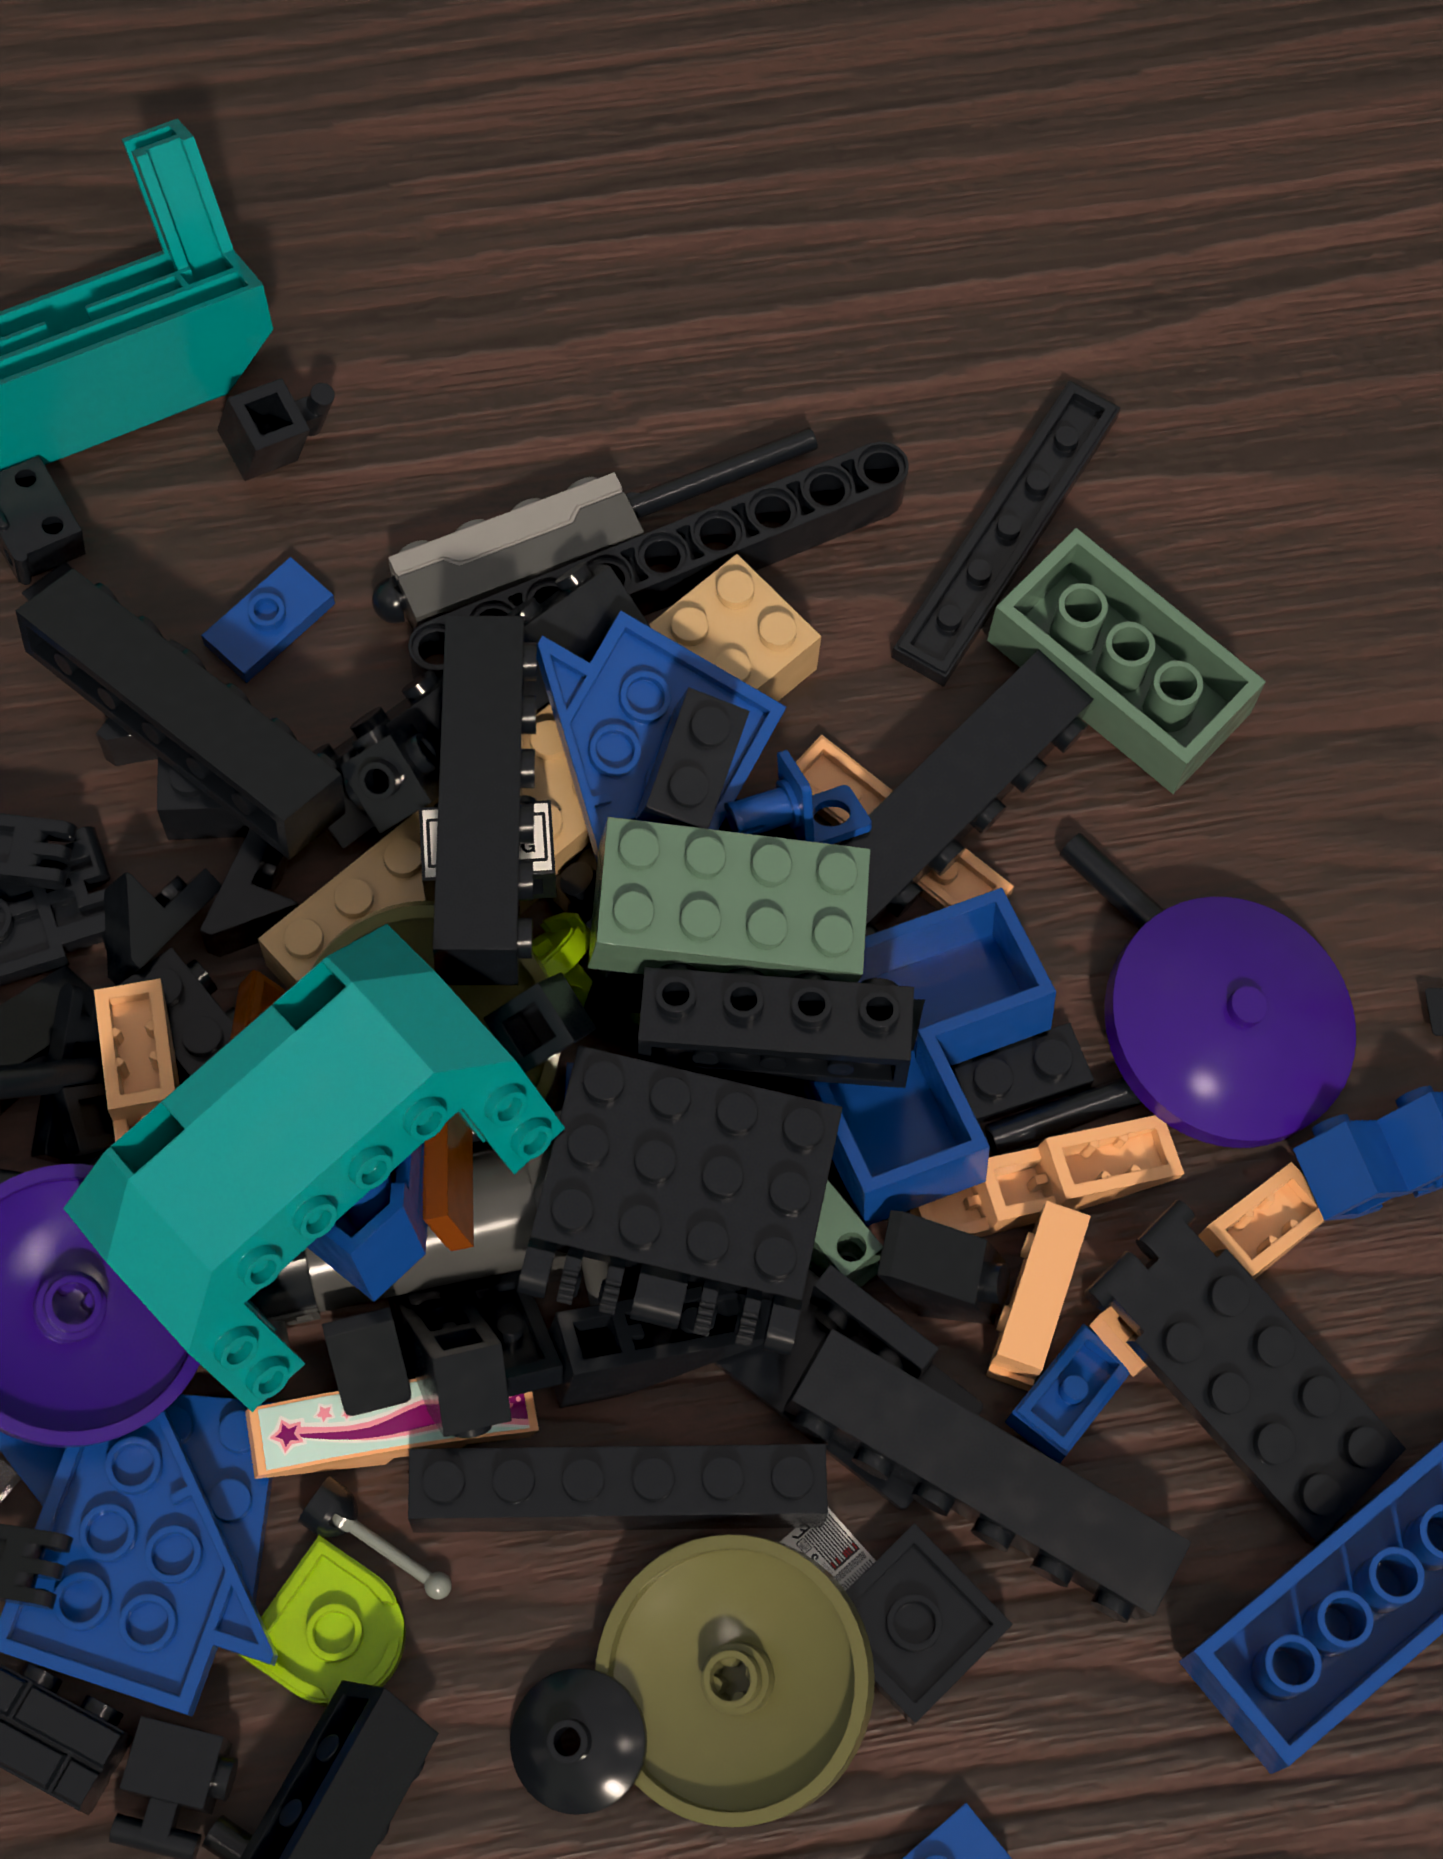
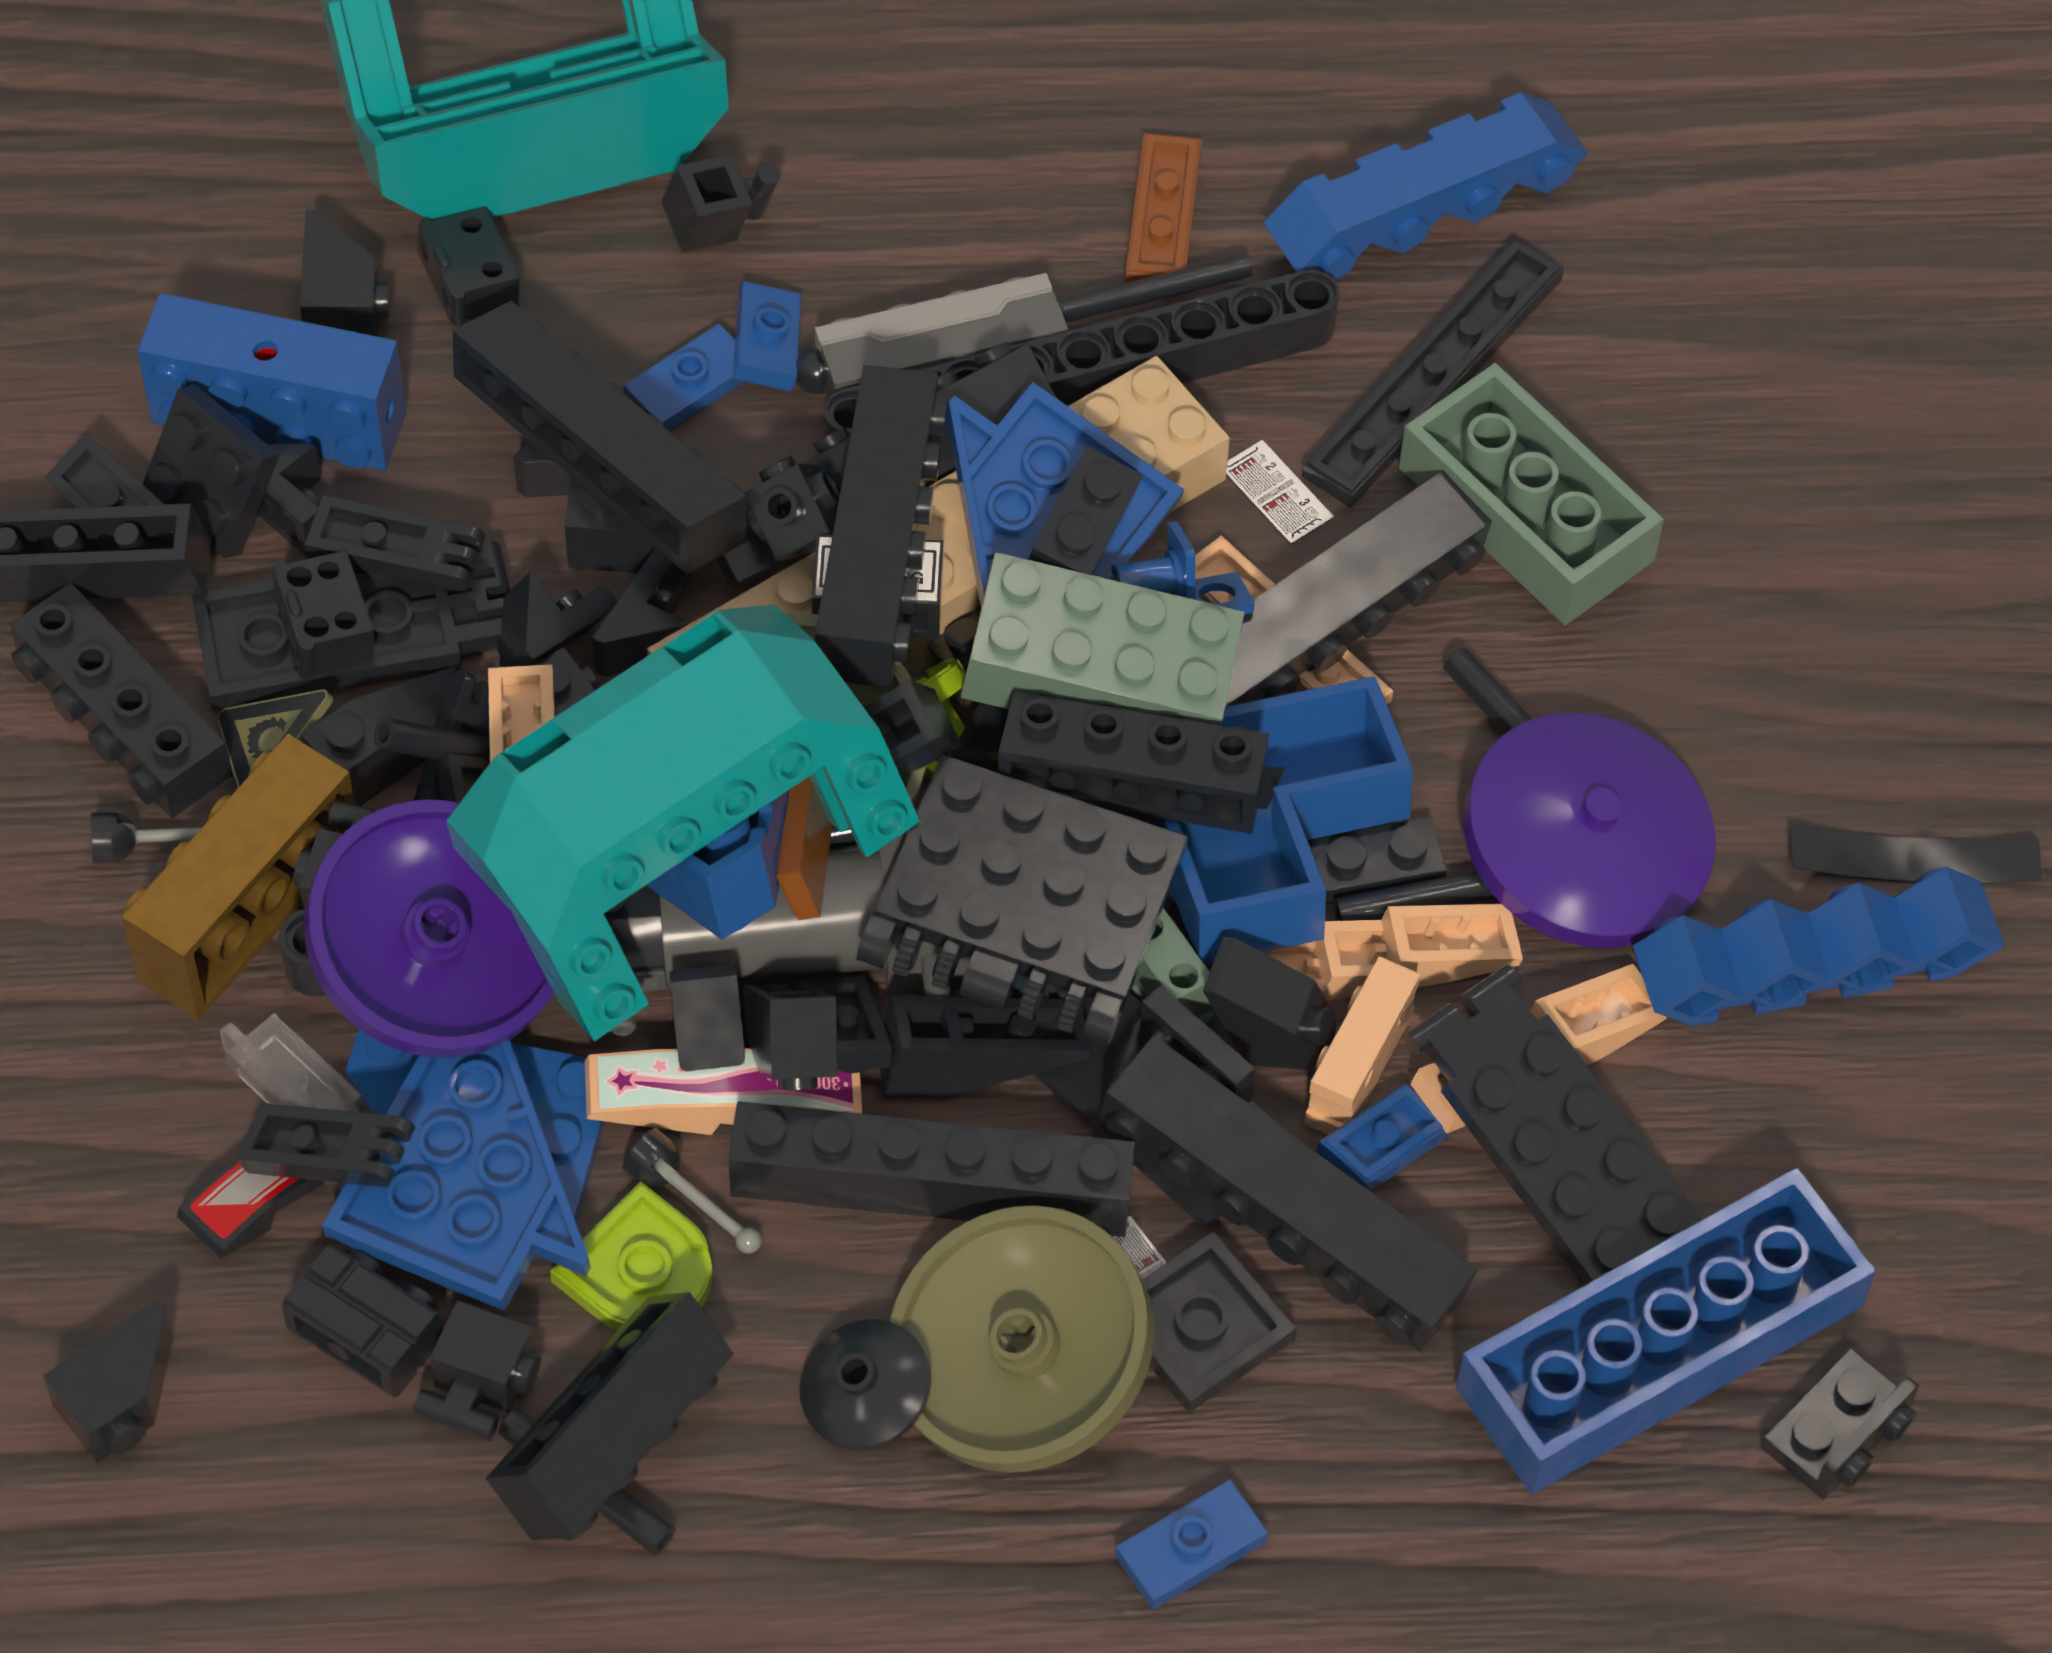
camera: 10 degrees right, 10 degrees down
(340, 566) = (767, 336): none -> blue plate
(719, 383) = (1163, 206): none -> dark orange tile
(869, 677) = (1277, 491): none -> white sticker
(959, 346) = (1403, 193): none -> blue brick

